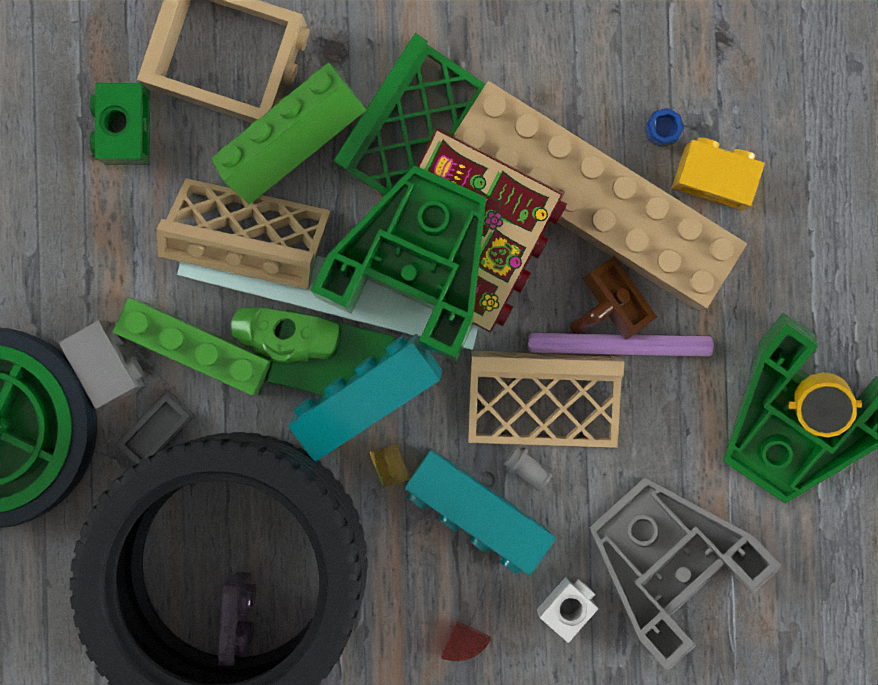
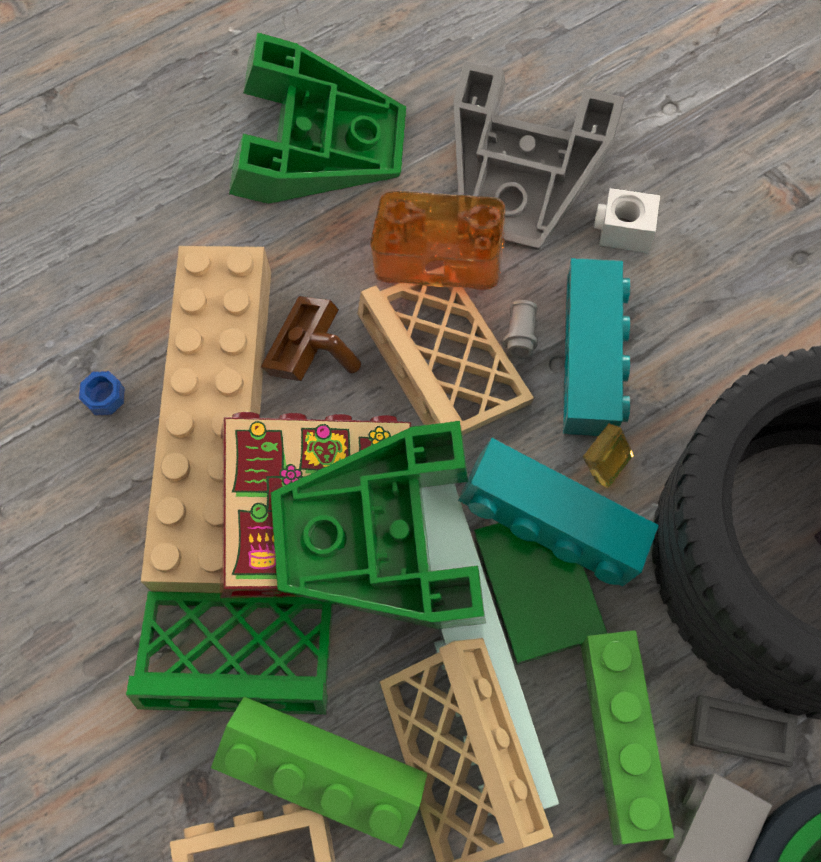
camera: 115 degrees left, 20 degrees down
(312, 337) = (555, 680): bright green piece -> none
(464, 643) = (727, 293): clear red tile -> none
(616, 344) = (348, 318): lavender axle -> none
(644, 456) = (444, 227): none -> clear orange axle
(718, 174) = (123, 318): yellow brick -> none
(825, 404) = (295, 106): piece -> none

